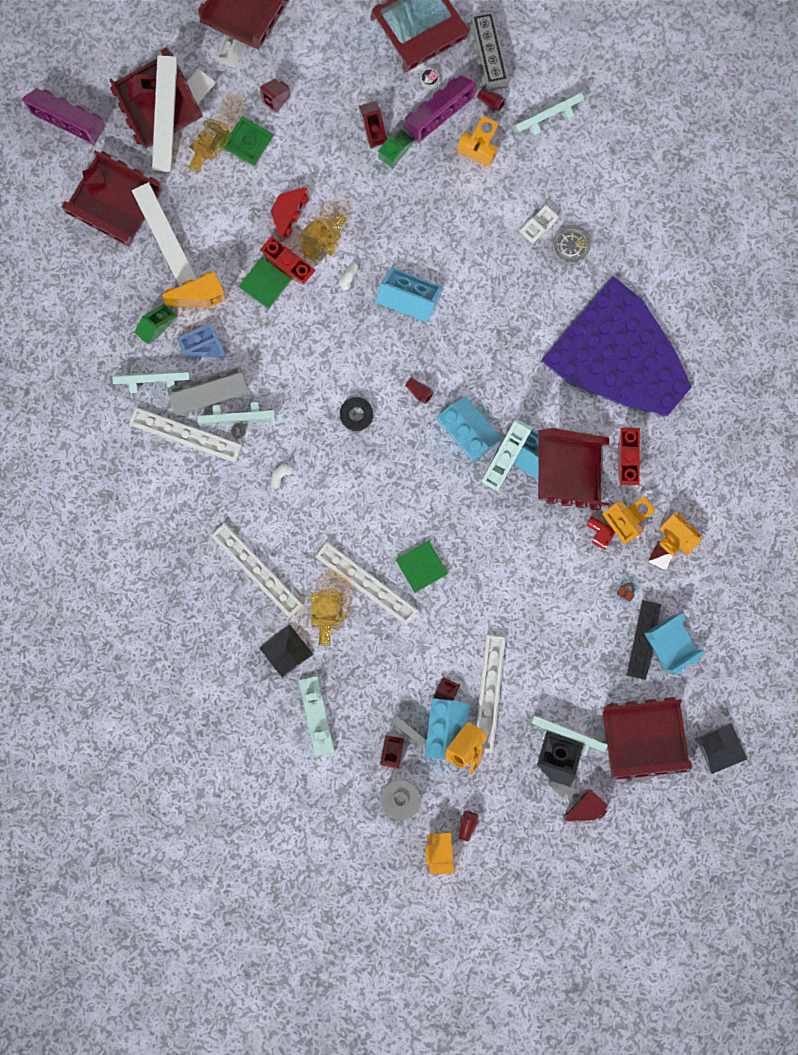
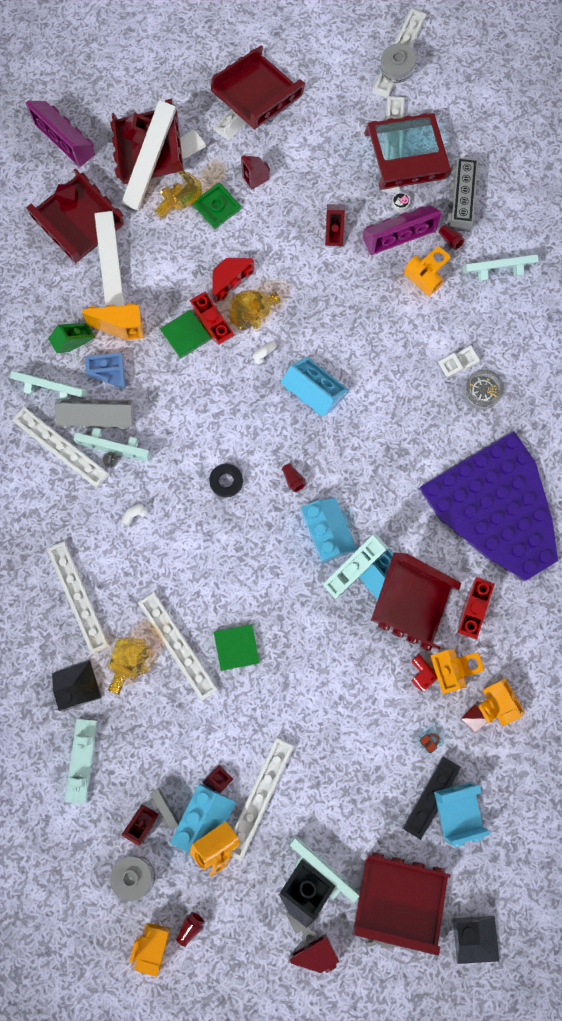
camera: 20 degrees right, 5 degrees down
(395, 148) = (347, 251): green slope -> none

